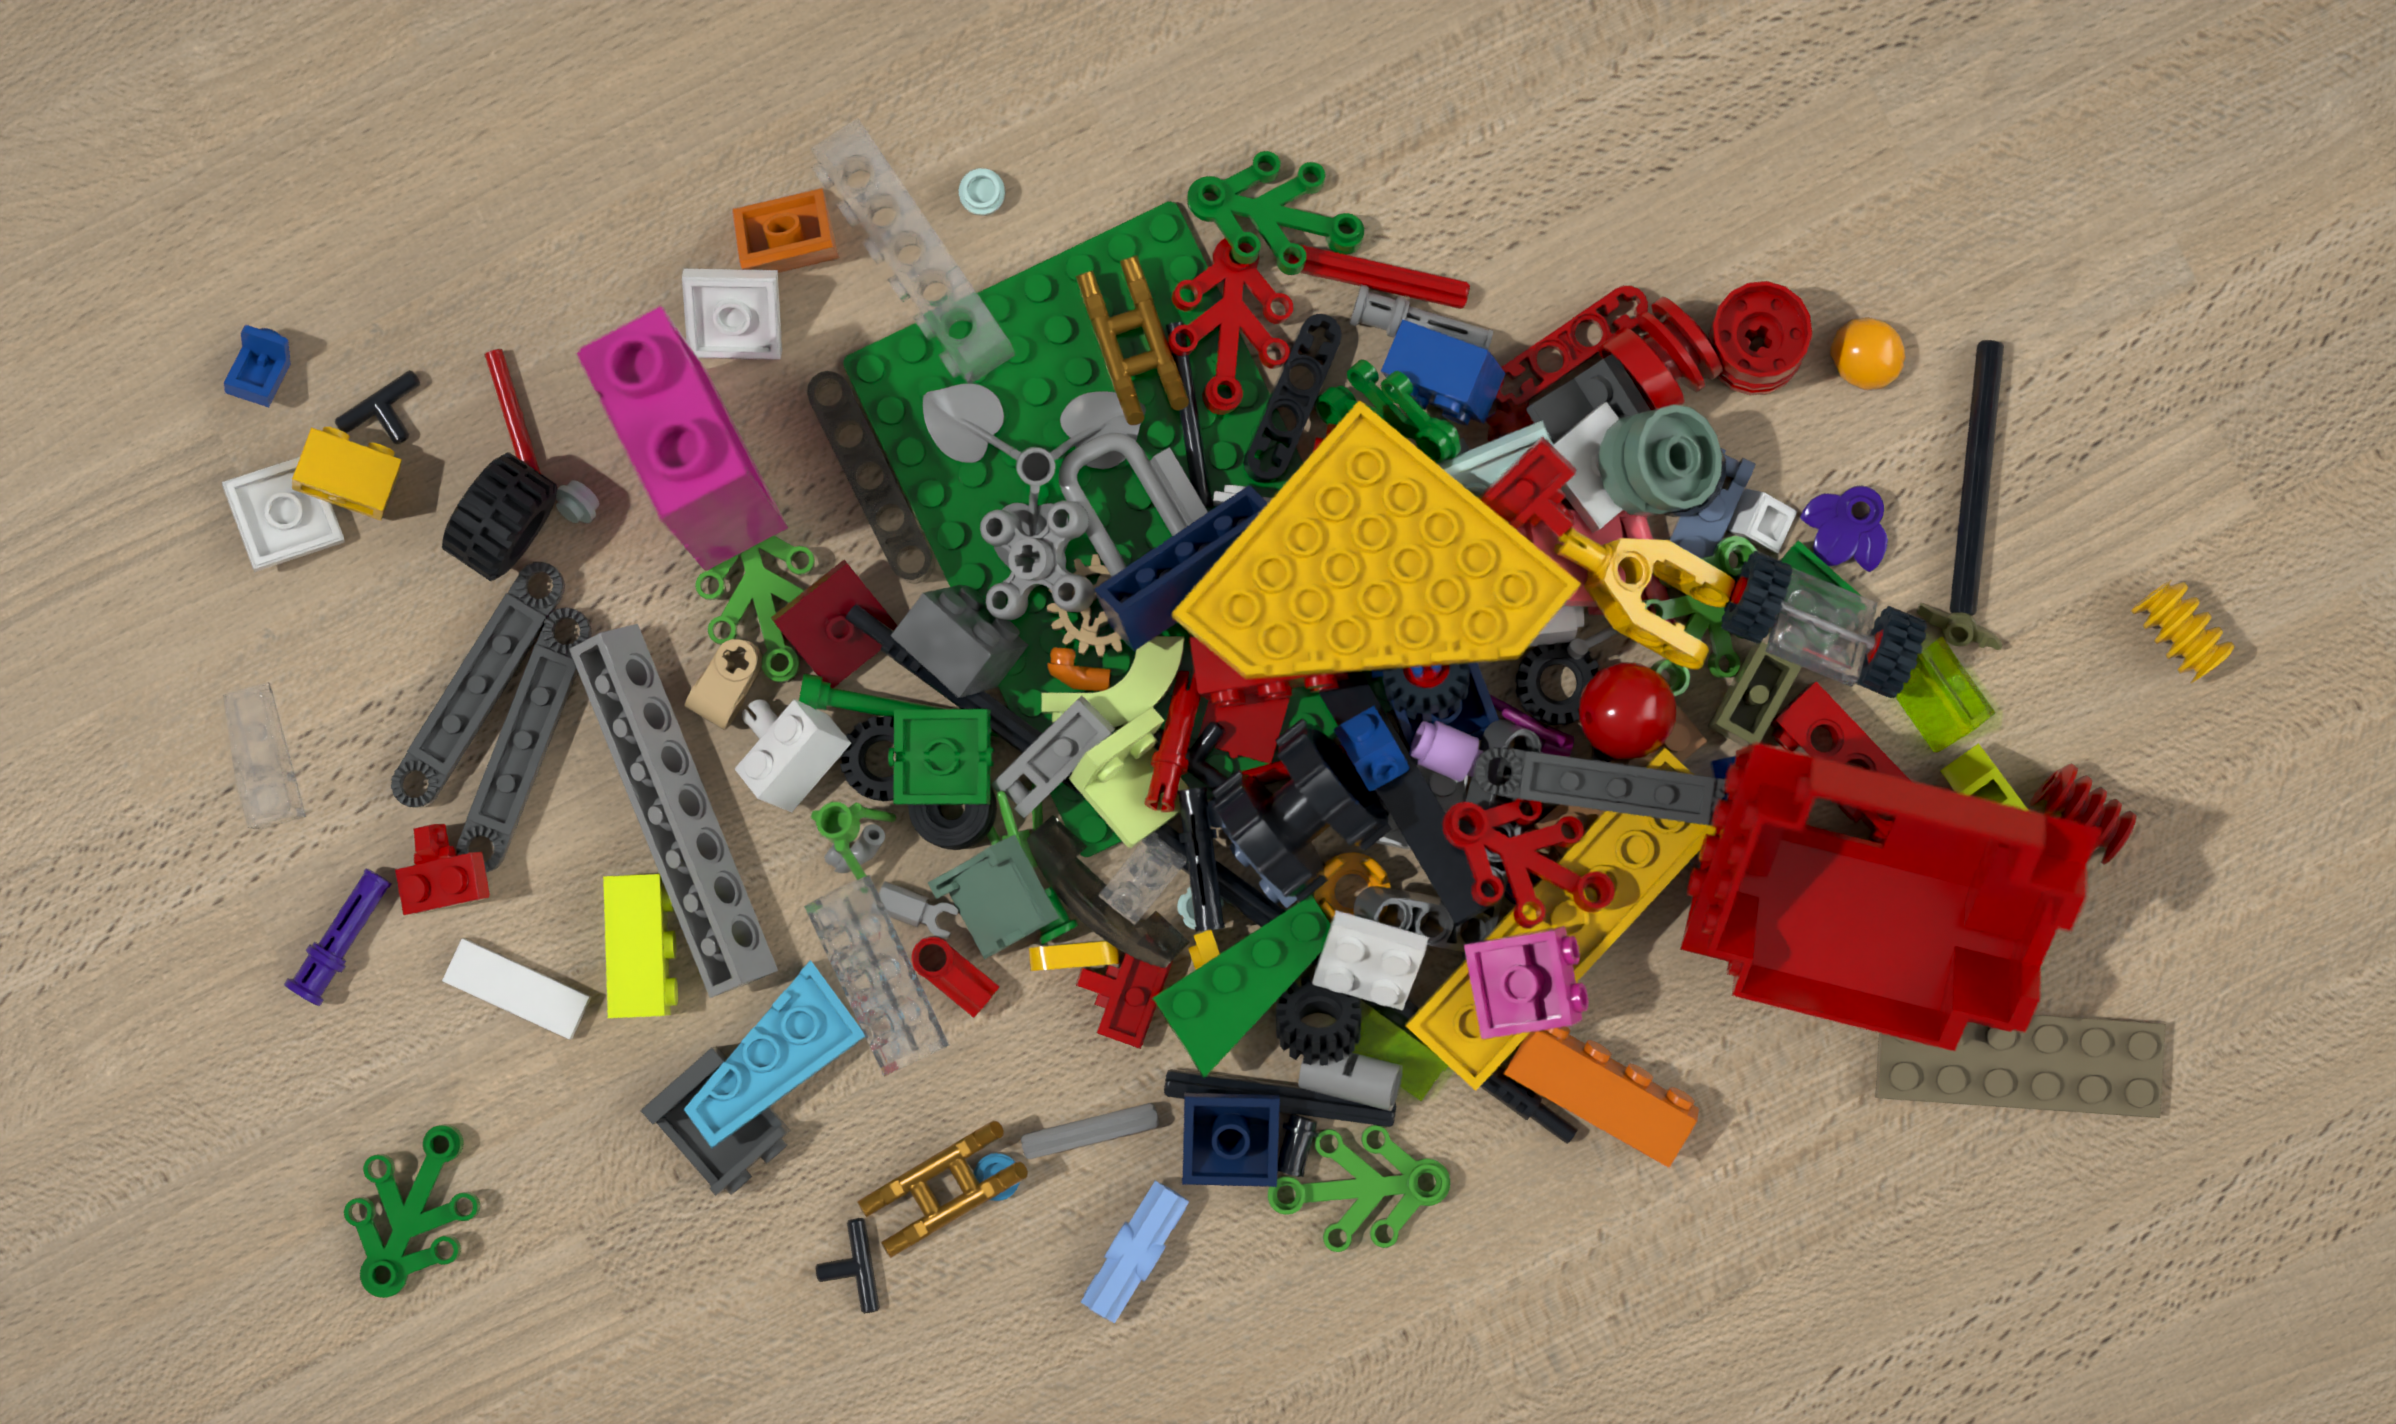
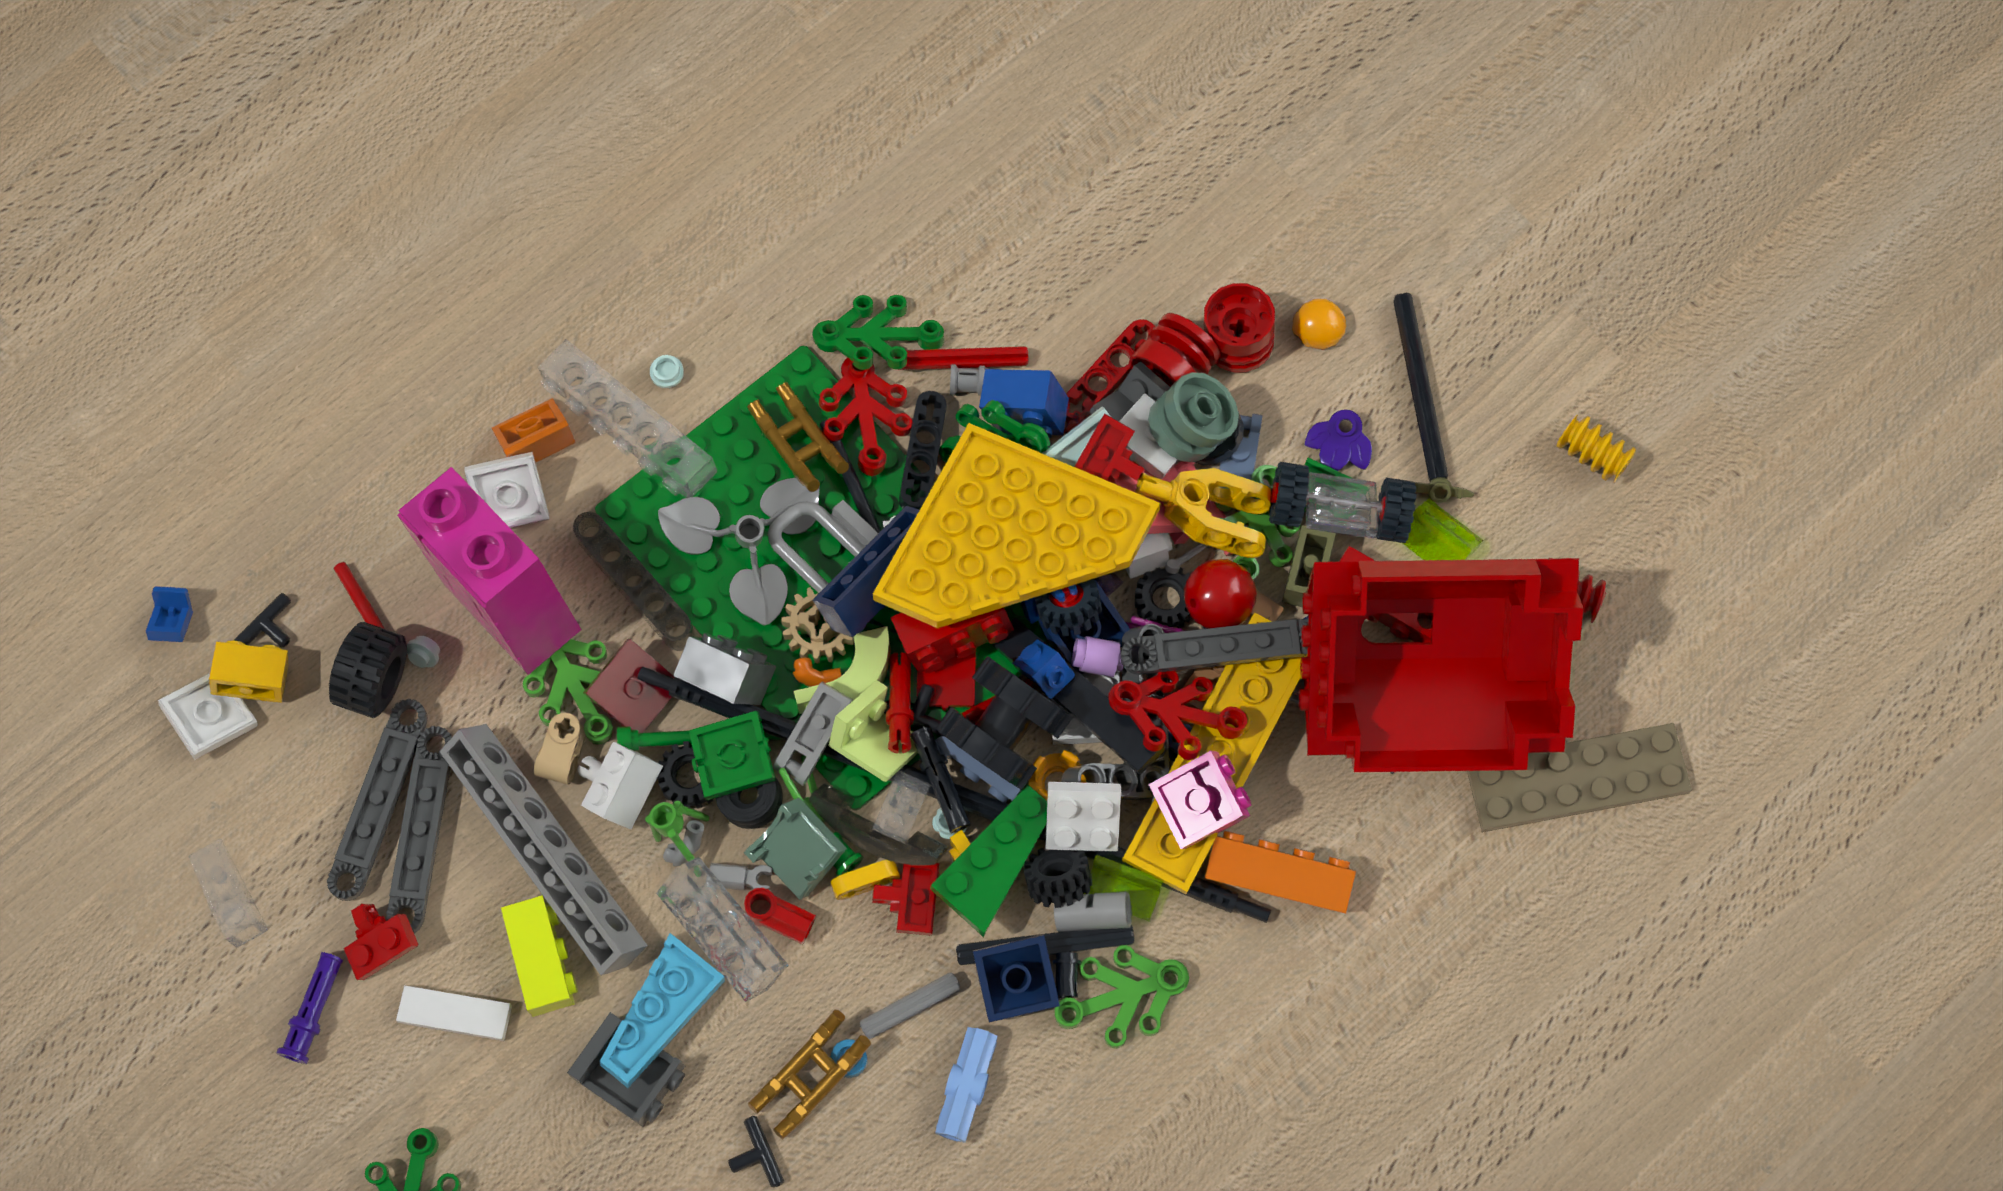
camera: 15 degrees left, 15 degrees down
(1022, 554) = (767, 599): light grey gear -> none
(1761, 520) = (1277, 448): white slope -> none

